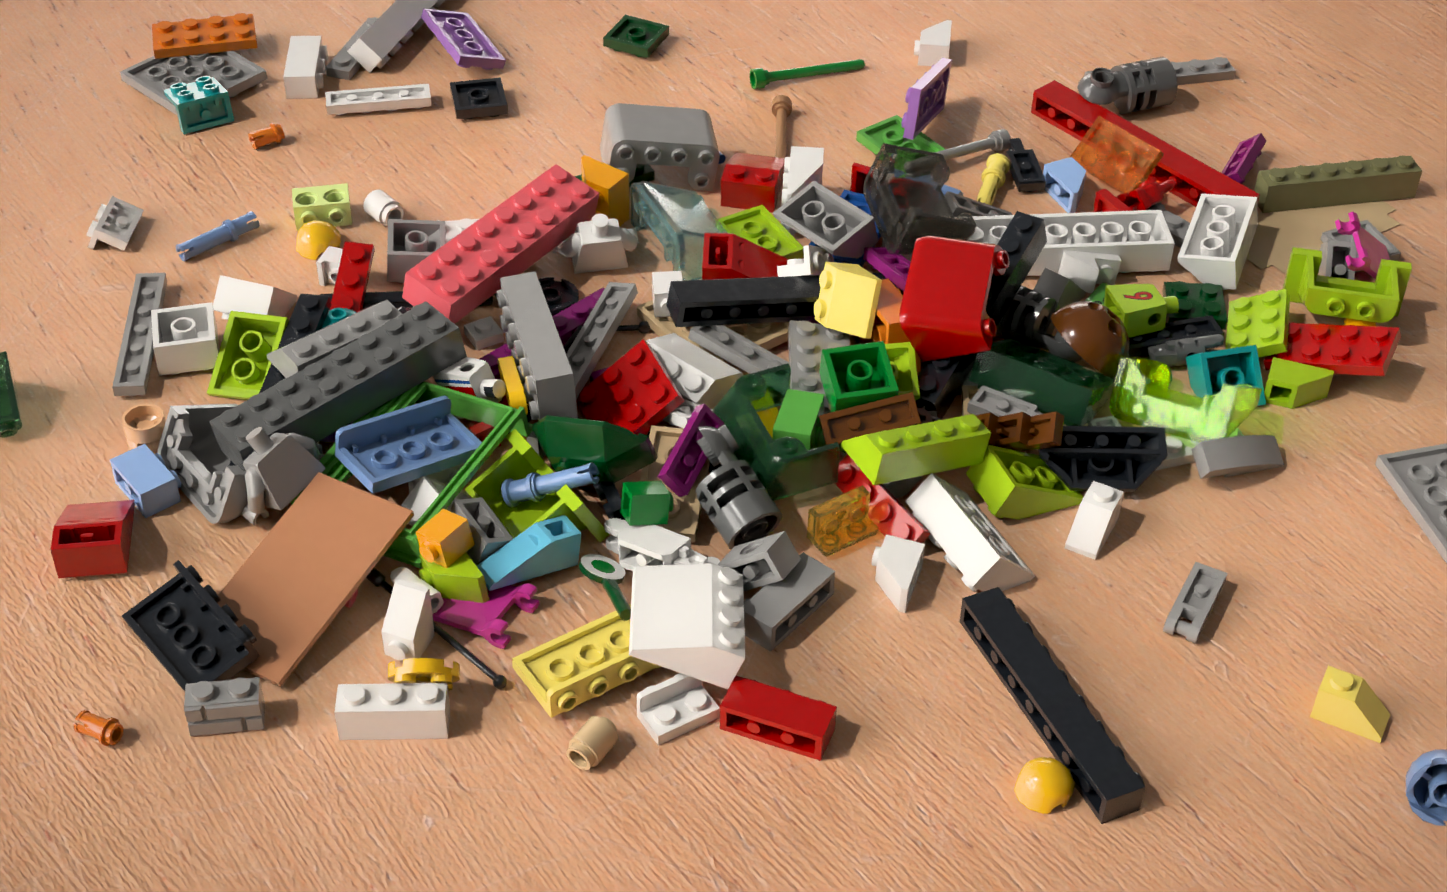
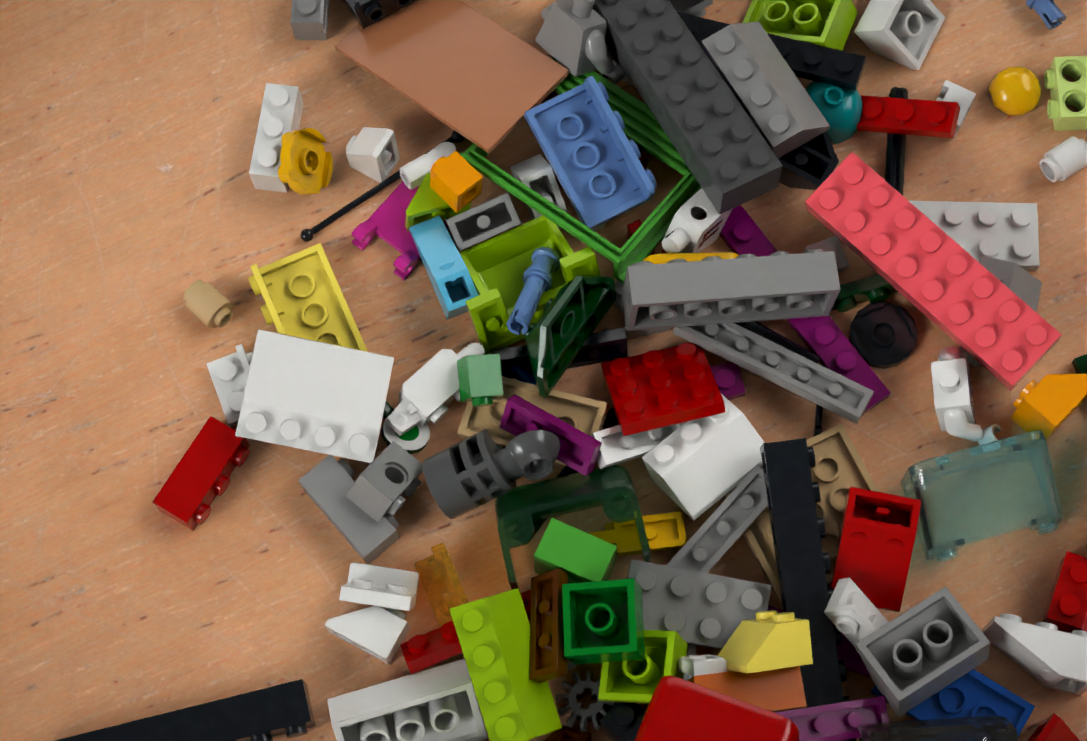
camera: 105 degrees right, 30 degrees up
(410, 244) = (967, 183): light grey slope -> none
(609, 574) = (422, 339): piece -> none
(660, 290) = (840, 453): white brick -> none
(764, 230) = (981, 581): lime plate -> none
(859, 565) = (381, 586): none -> white bracket
(874, 329) = (702, 664): none -> white tile
(1044, 784) = (76, 708): yellow hair -> none

